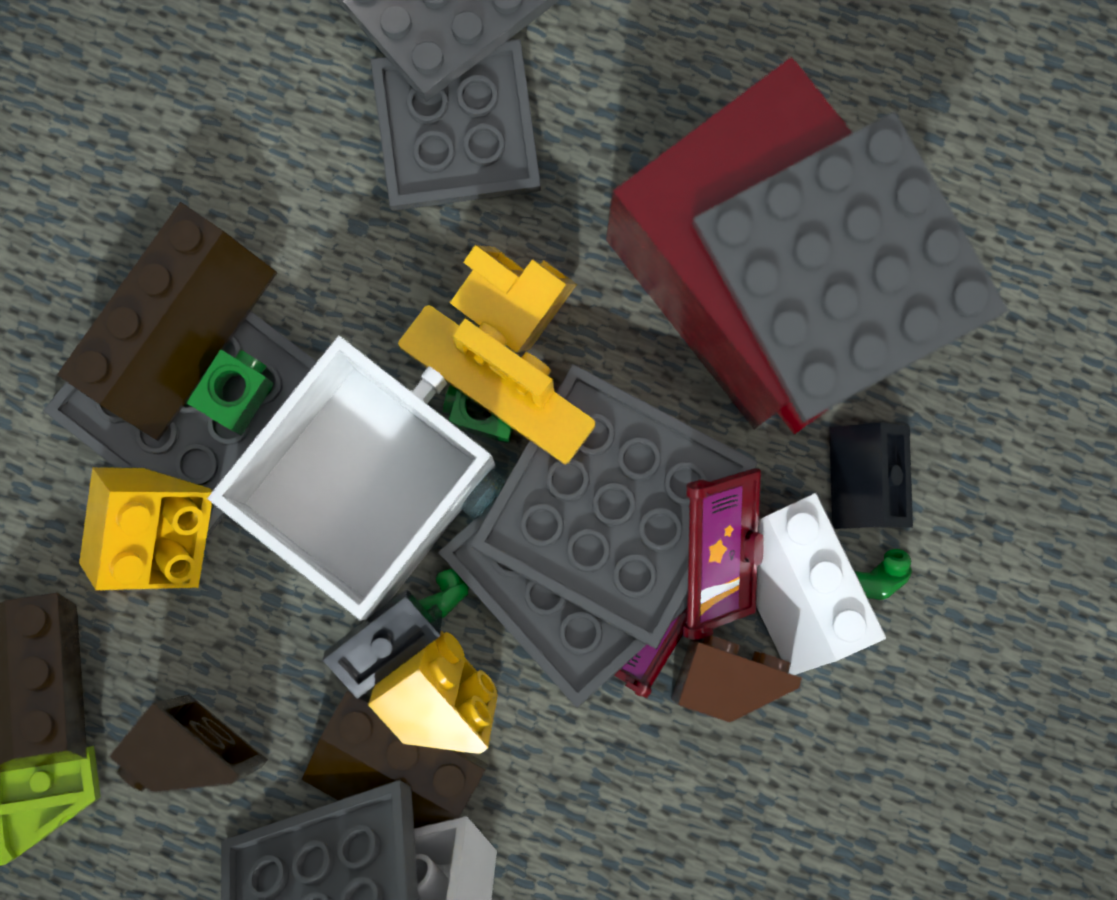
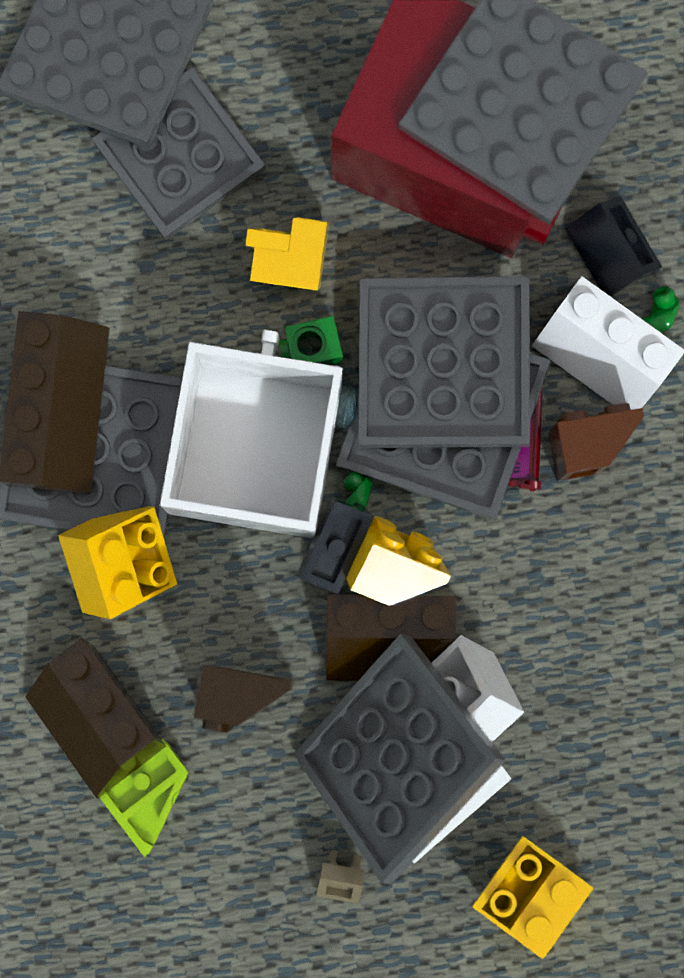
camera: 30 degrees left, 0 degrees up
(209, 396) = (130, 446): green brick -> none
(499, 380) = (315, 316): yellow bracket -> none
(720, 555) = (539, 352): door -> none

